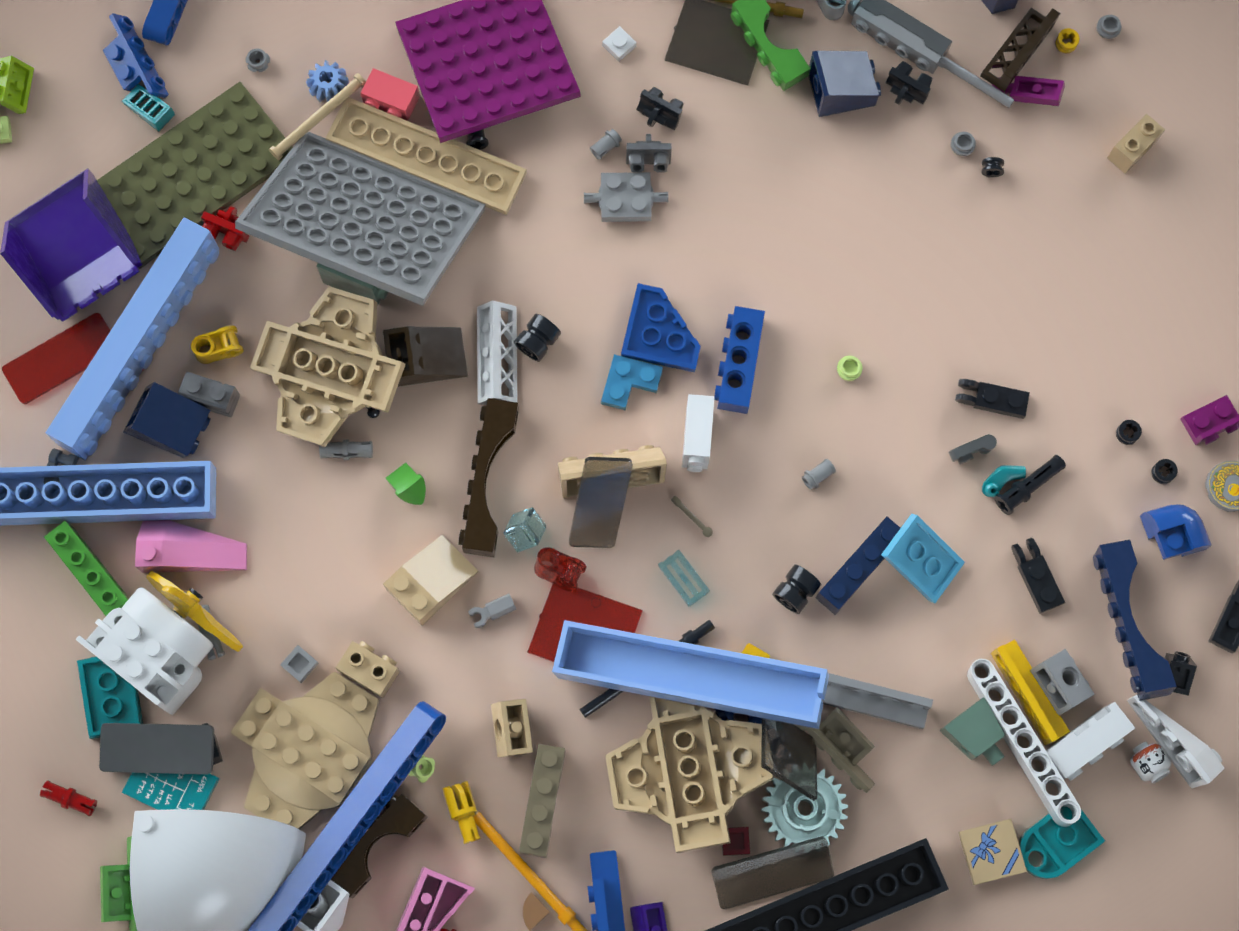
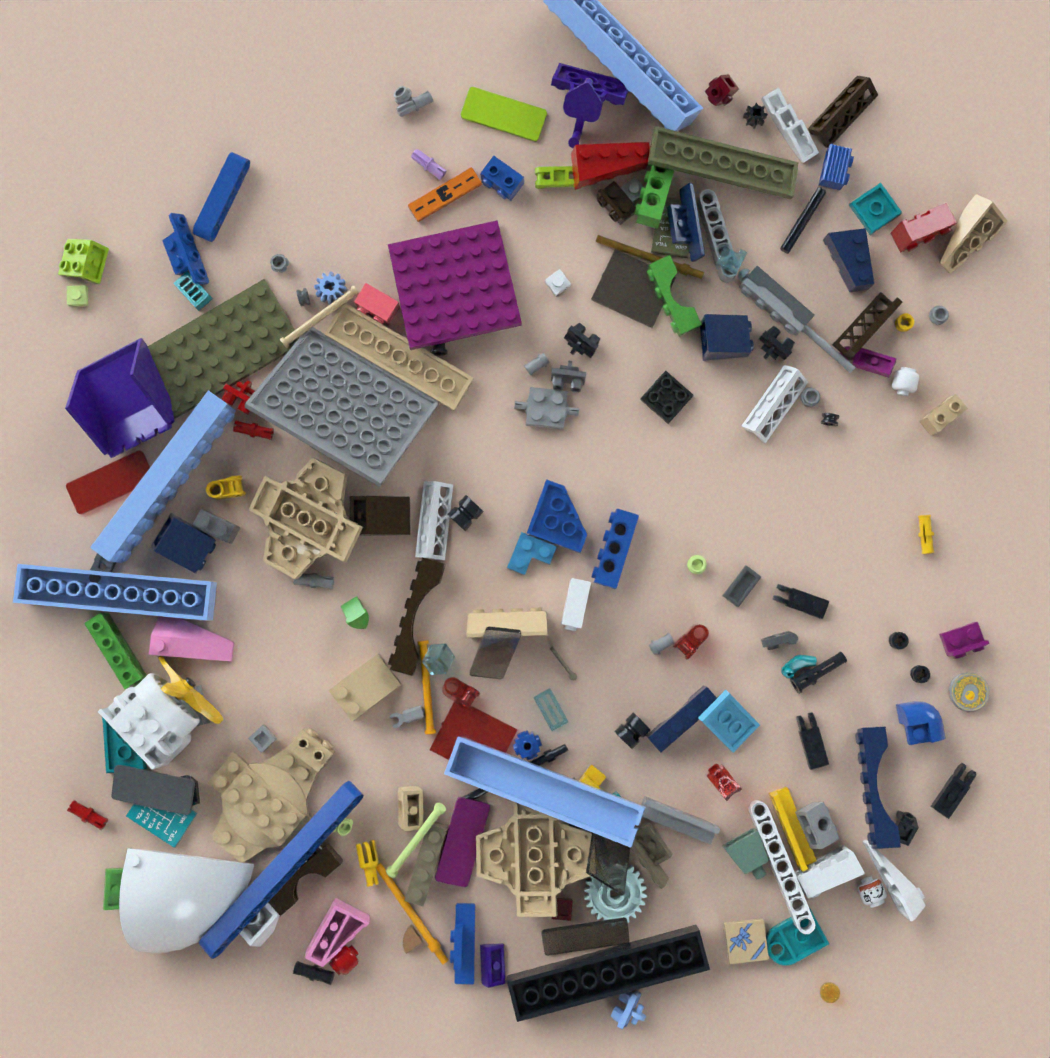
camera: 10 degrees right, 10 degrees up
(245, 269) = (253, 430): none -> red pin
(293, 97) = (303, 297): none -> dark grey bush
(497, 819) = (439, 809): none -> yellowish green bar
(525, 624) = (426, 690): none -> light orange bar
(585, 768) = (460, 842): none -> magenta piece
(653, 614) = (527, 737): none -> blue brick
(779, 166) = (666, 397): none -> pearl dark grey tile
(855, 466) = (691, 641): none -> clear red piece
(912, 389) = (741, 586): none -> dark grey tile
(916, 151) = (774, 400): none -> white fence
(927, 639) = (723, 781): none -> clear red hips
(1080, 109) = (905, 381): none -> white head
(1117, 908) = (829, 992): none -> clear yellow plate
(1140, 294) = (926, 534): none -> yellow pin

